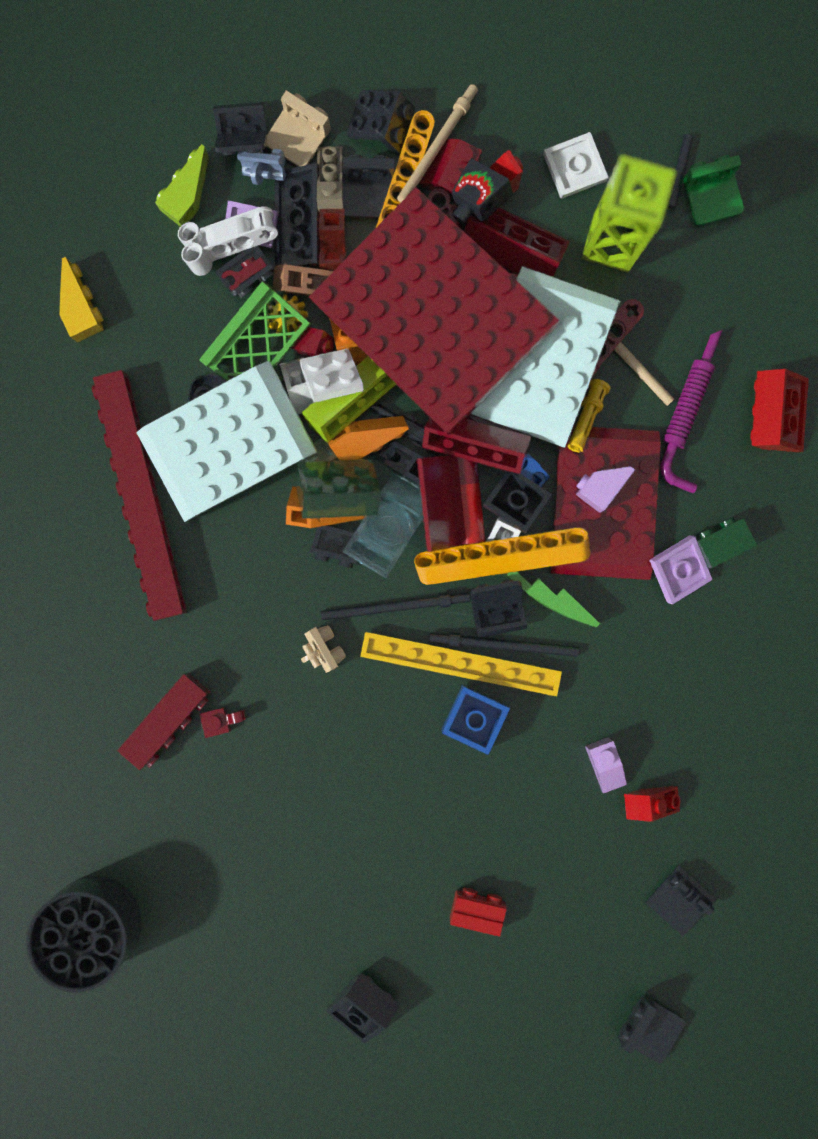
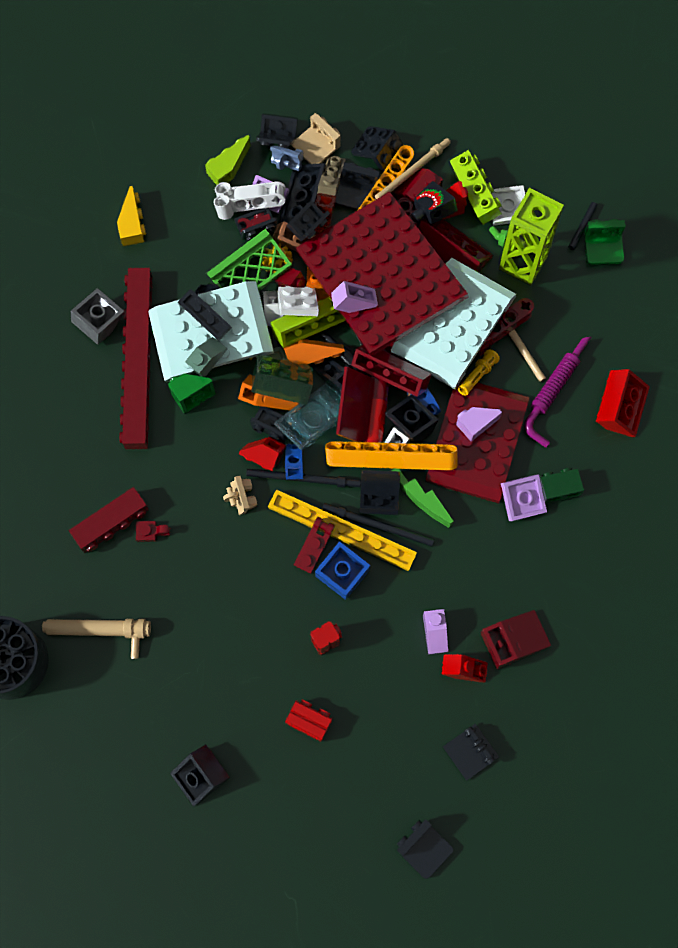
camera: 10 degrees right, 15 degrees down
(70, 452) = (96, 316): none -> flat silver slope
(213, 427) = (204, 314): none -> black plate
(220, 530) = (190, 390): none -> green slope
(226, 852) = (127, 628): none -> tan cylinder
(230, 484) = (206, 356): none -> sand green slope
(316, 256) = (306, 221): none -> black bracket
(337, 587) = (264, 452): none -> red slope
(378, 592) = (293, 462): none -> blue leg
(407, 360) = (353, 297): none -> lavender slope
(431, 694) = (314, 545): none -> dark red plate
(475, 810) = (326, 637): none -> red brick
(535, 156) = (478, 190): none -> lime brick
(579, 215) = (500, 236): none -> bright green plate
(707, 753) = (515, 638): none -> dark red slope

